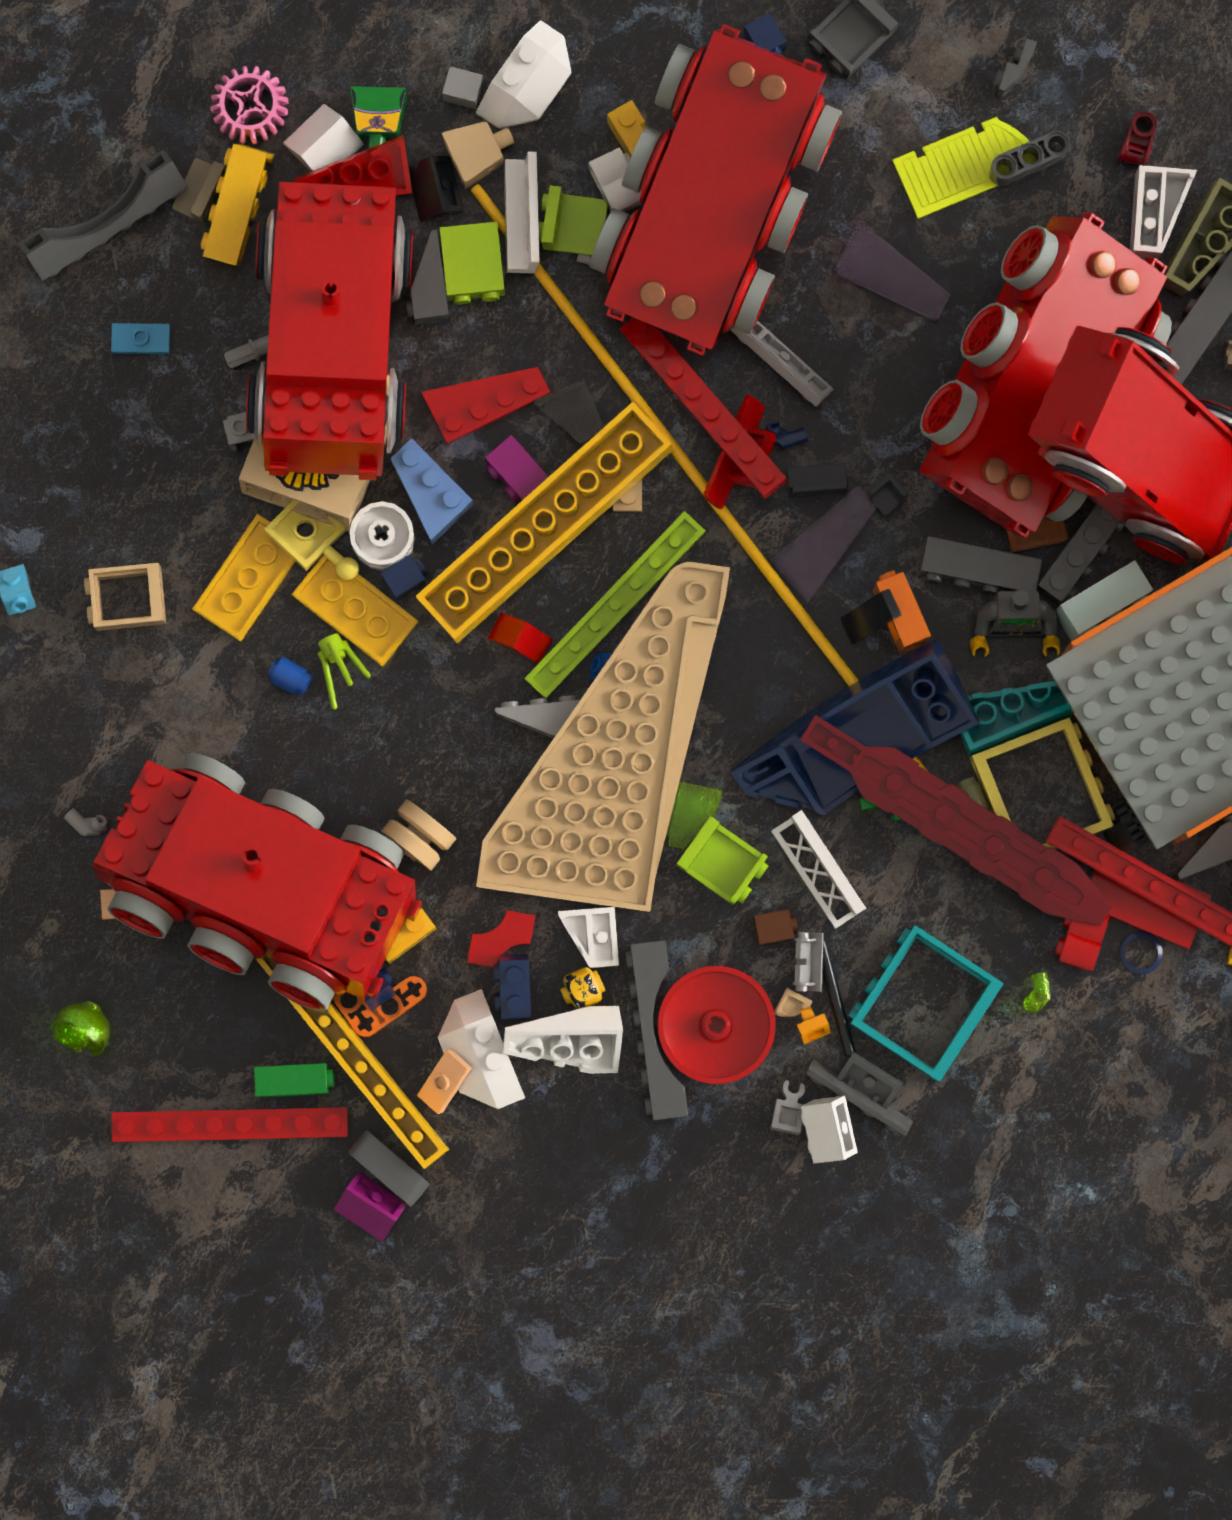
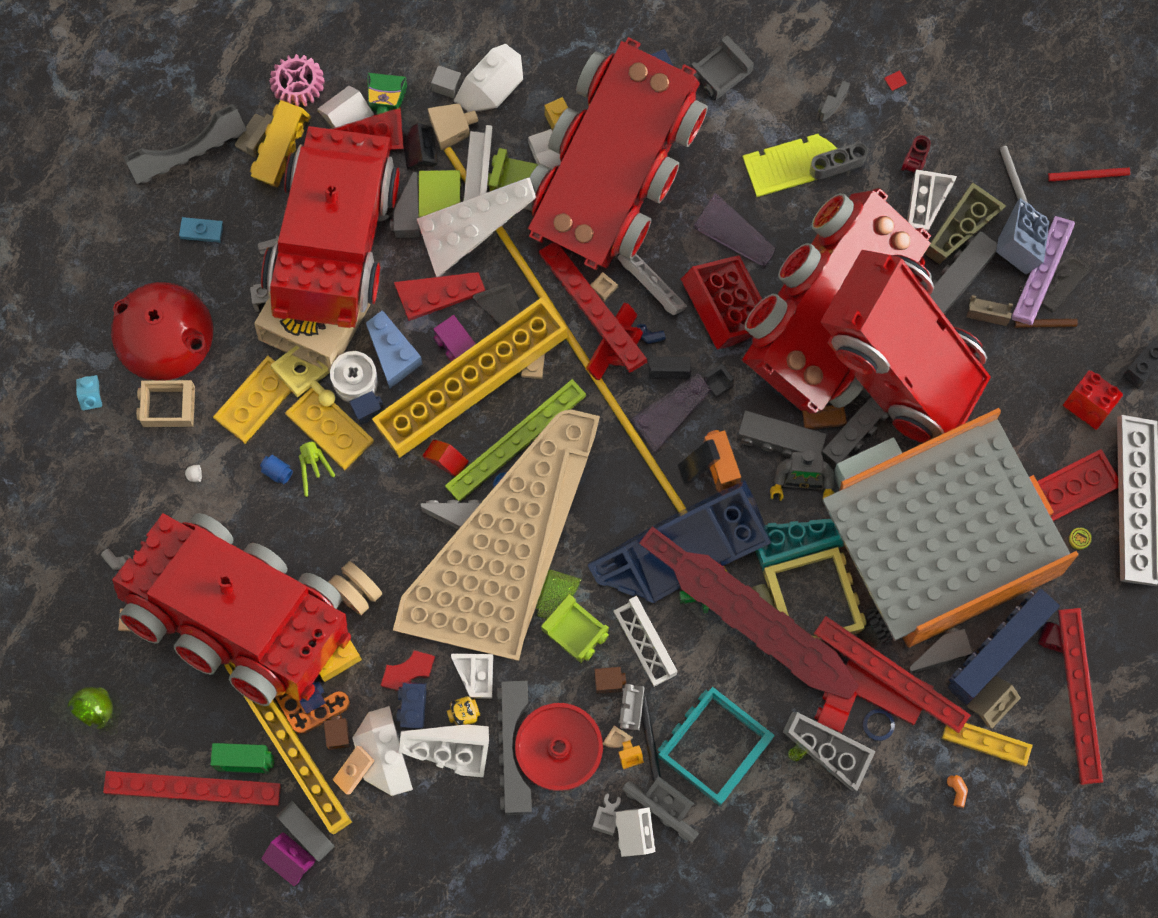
camera: 10 degrees right, 10 degrees down
(109, 520) = (160, 347): none -> red piece
(176, 692) = (194, 473): none -> white hinge
(415, 1032) = (336, 733): none -> reddish brown brick
(513, 306) = (462, 227): none -> white wing
(714, 371) = (604, 286): none -> tan tile
(885, 376) = (723, 298): none -> red slope
(1084, 997) = (834, 751): none -> light grey wedge
(1100, 26) = (895, 80): none -> red sticker

